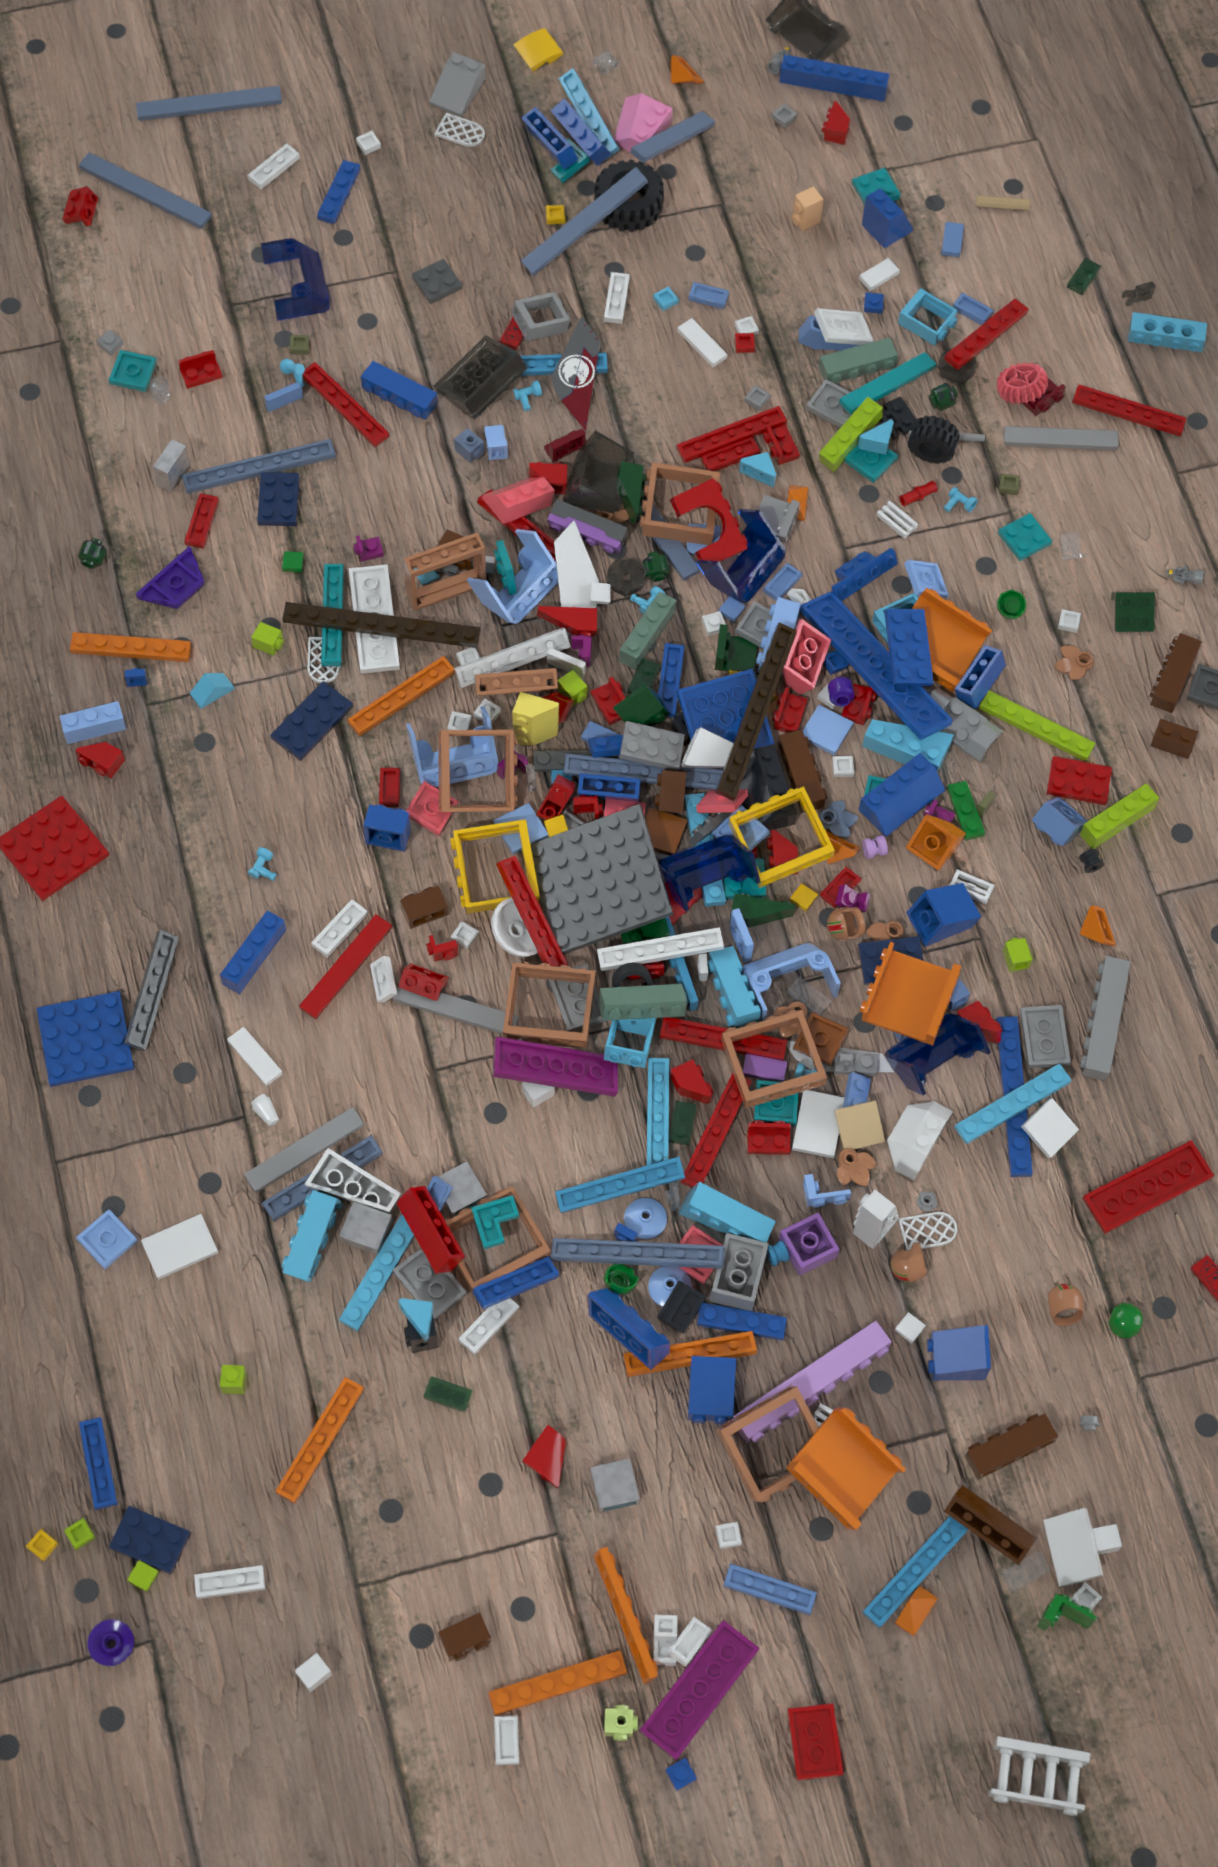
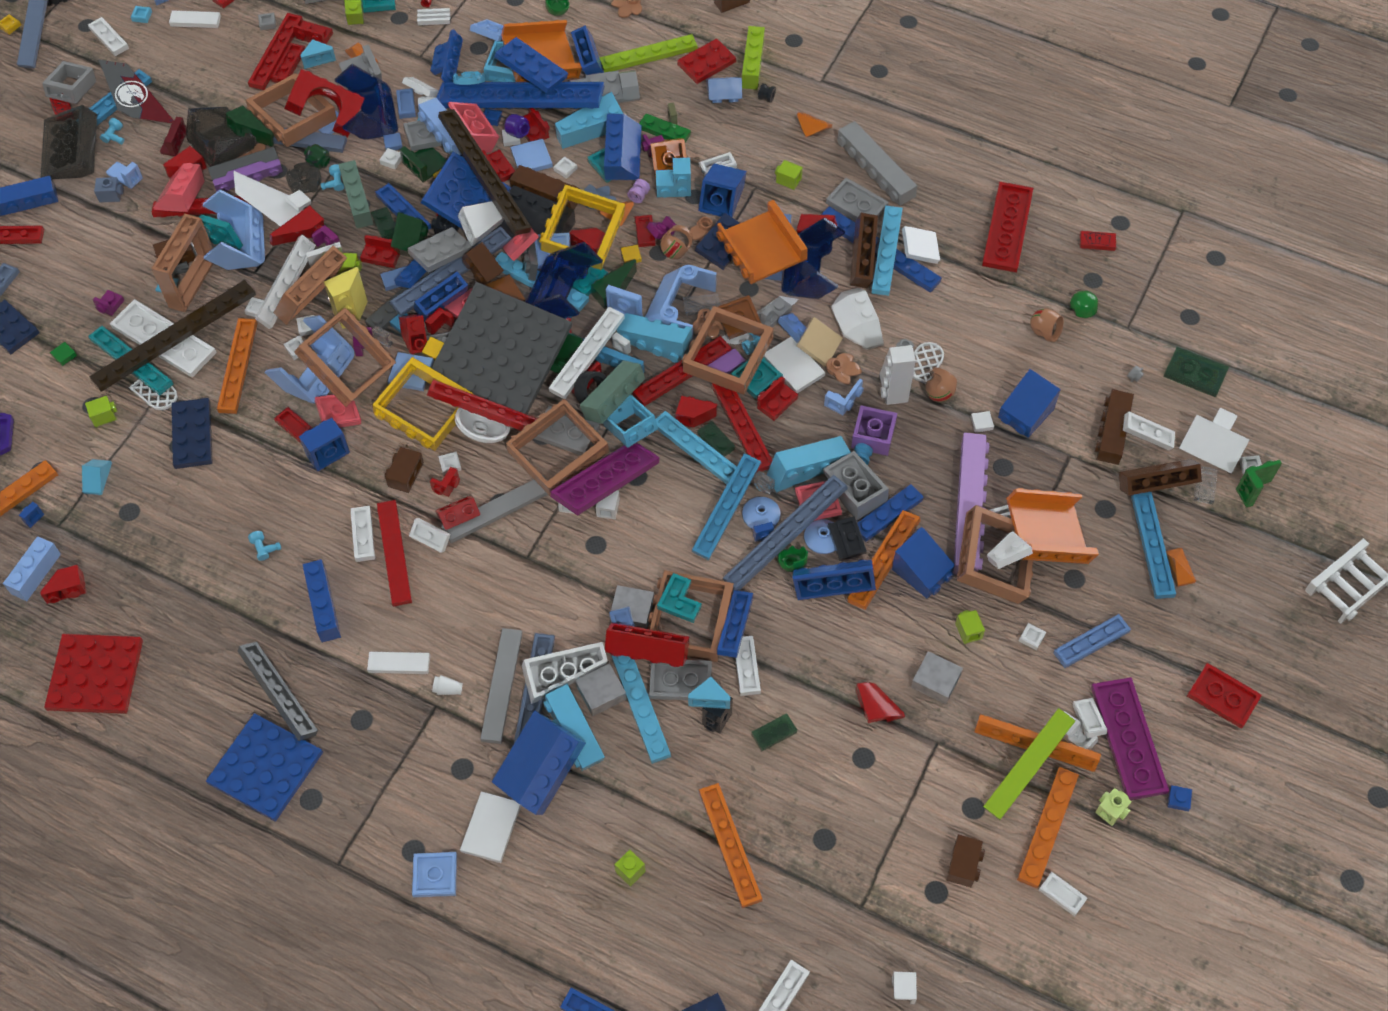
camera: 45 degrees left, 5 degrees down
(256, 1236) = (538, 763): none -> blue slope
(596, 1622) = (1029, 764): none -> lime tile
(688, 1474) = (969, 626): none -> lime brick
(777, 1449) = (1009, 550): none -> white wing
(808, 578) = (420, 87): none -> white plate
(855, 608) = (469, 78): none -> medium azure tile
(913, 867) = (676, 181): none -> medium azure brick
(989, 1084) = (863, 250): none -> reddish brown brick
(1030, 1479) = (1148, 431): none -> white plate
(1146, 1475) = (1196, 371): none -> clear green tile

